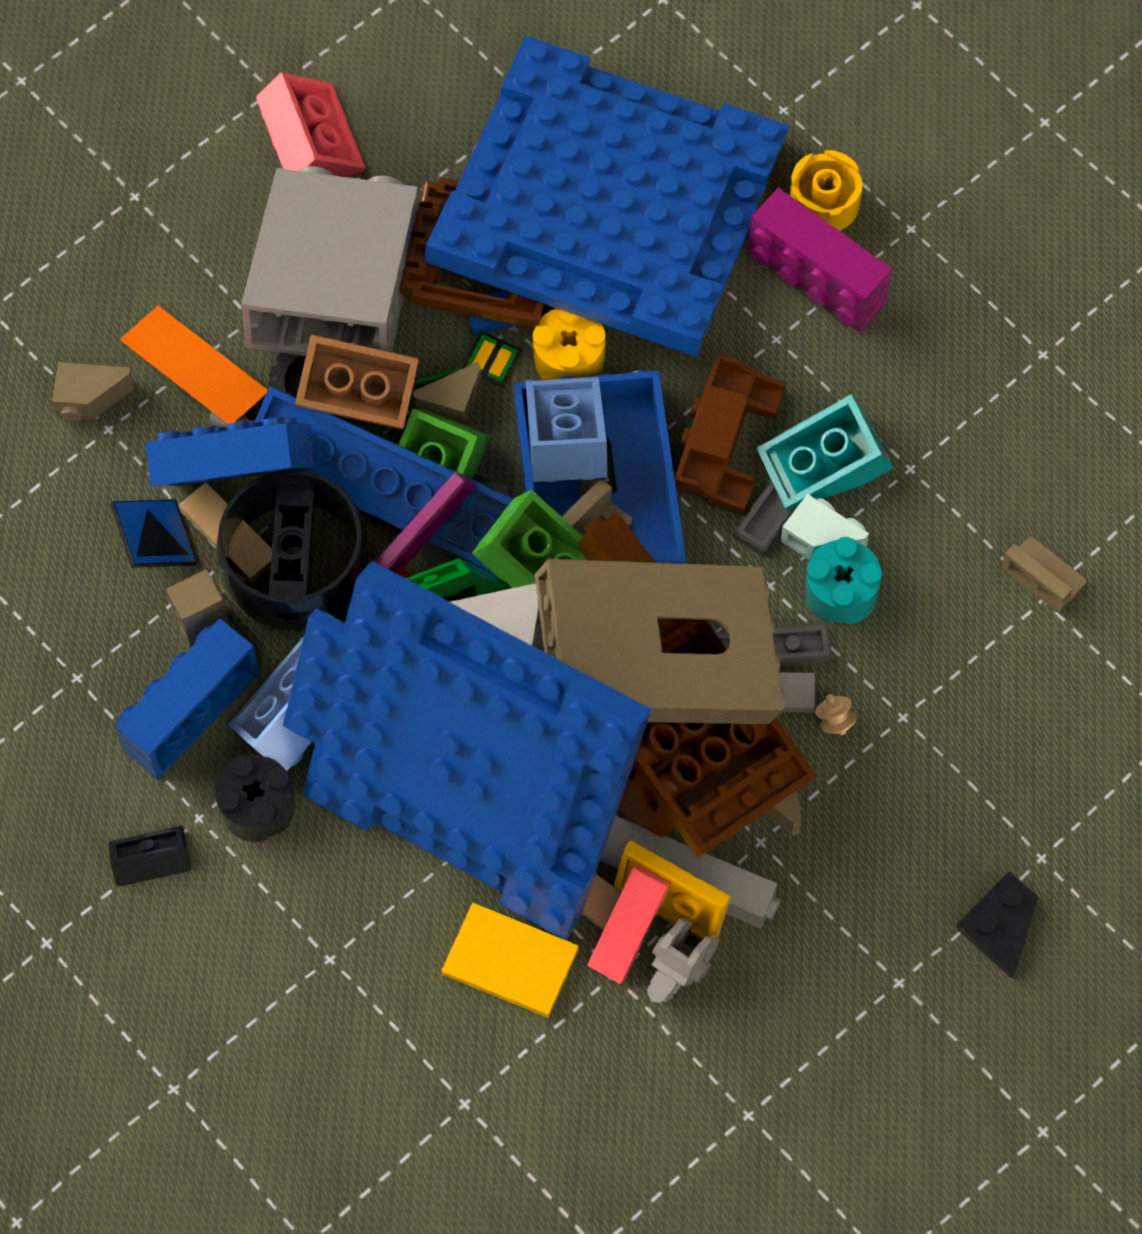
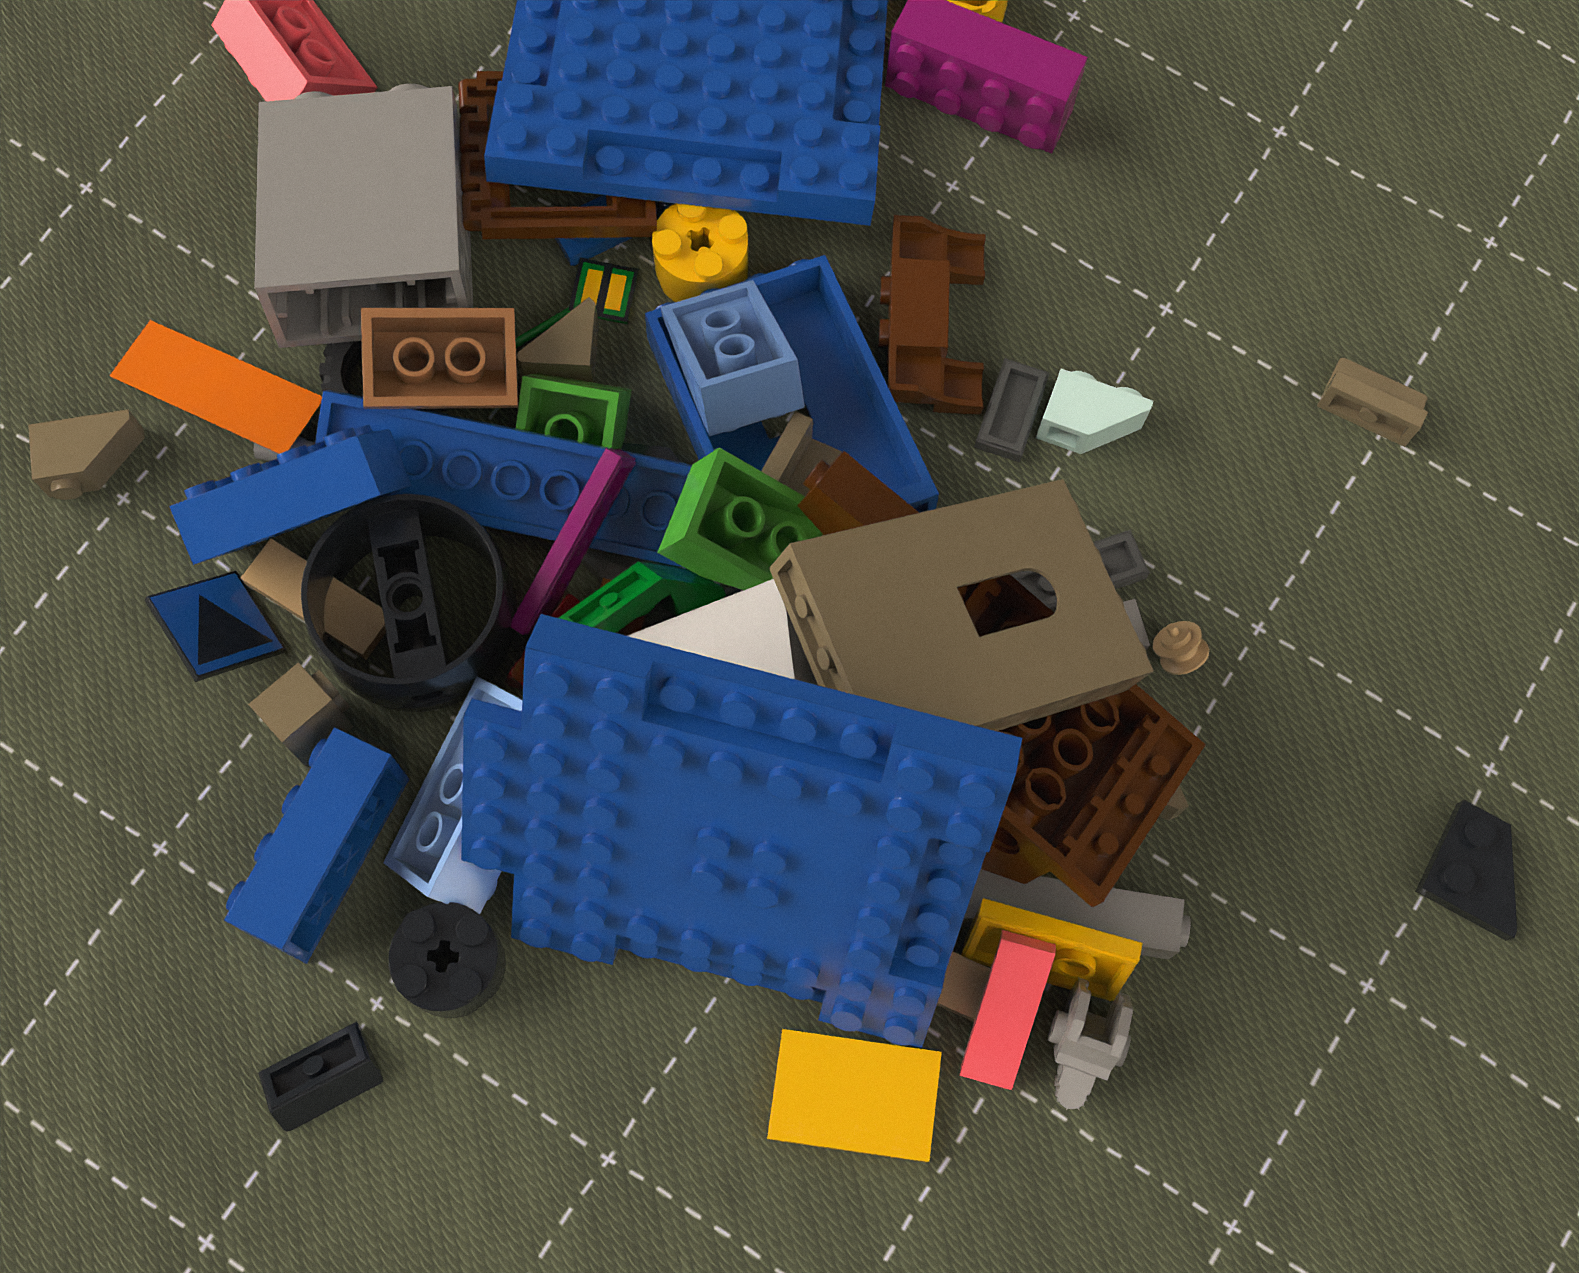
camera: 20 degrees left, 5 degrees up
(825, 454) = (1063, 313): teal slope -> none
(858, 586) = (1141, 446): teal brick -> none

